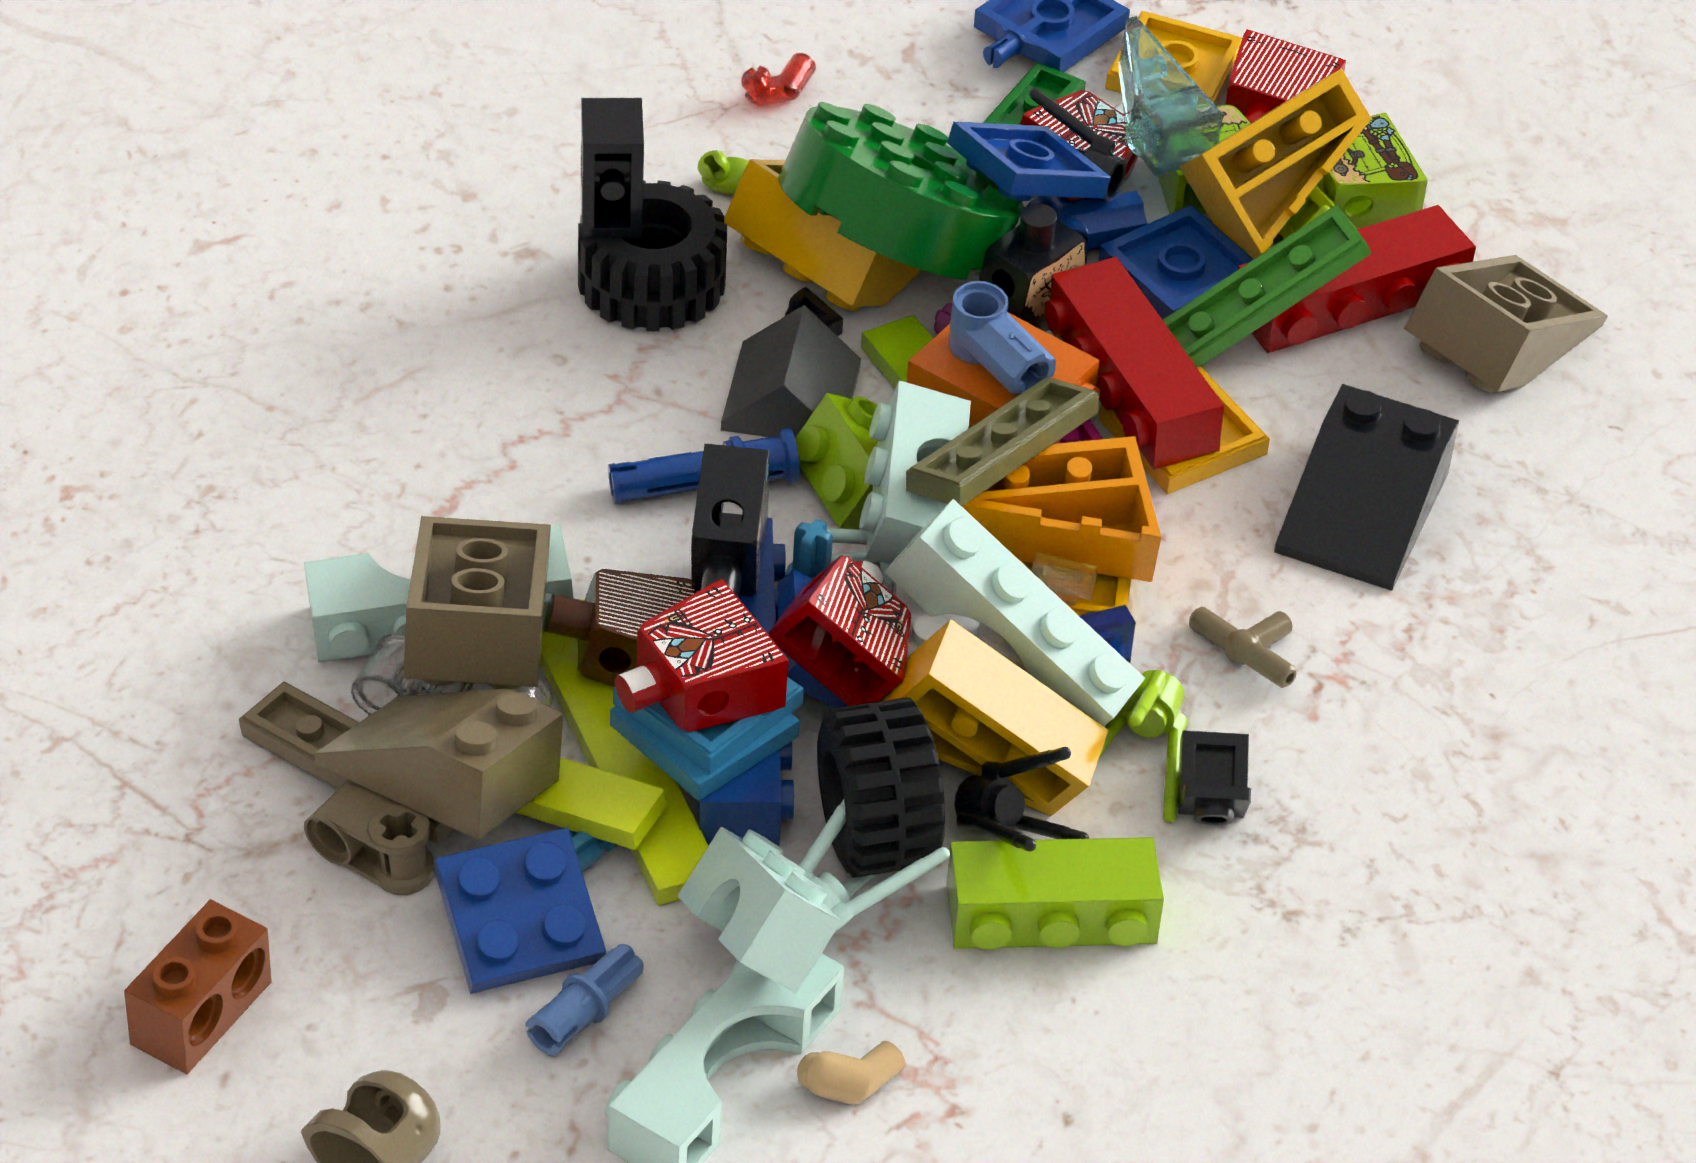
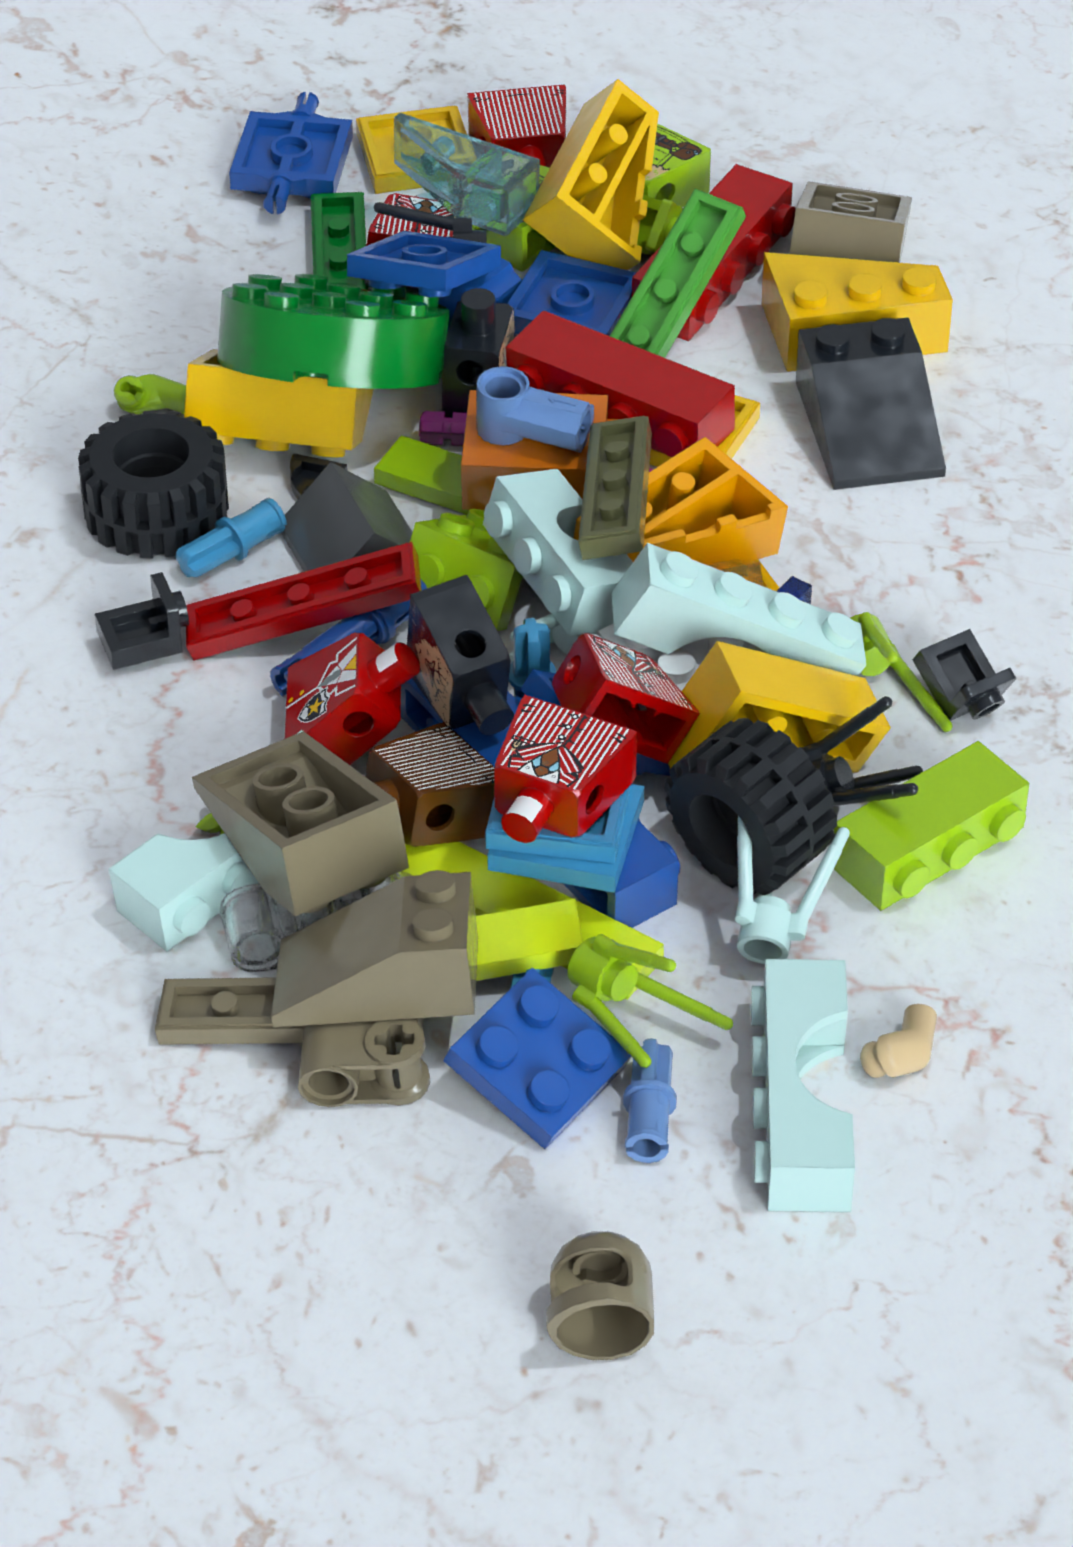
camera: 30 degrees left, 0 degrees up
(198, 986) = (338, 1261): dark orange brick -> none
(535, 377) = (145, 628): none -> black bracket
(612, 167) = (104, 414): black brick -> none
(636, 872) = (606, 973): none -> lime plant
(644, 509) = (348, 694): none -> red torso
(680, 416) = (302, 601): none -> red tile
(684, 336) = (231, 538): none -> dark azure axle
(761, 905) = (791, 946): light aqua arch -> none
(787, 86) = (117, 306): clear red arm -> none
(1249, 645) = (887, 566): dark tan piece -> none
(1436, 373) = (841, 291): none -> yellow wedge

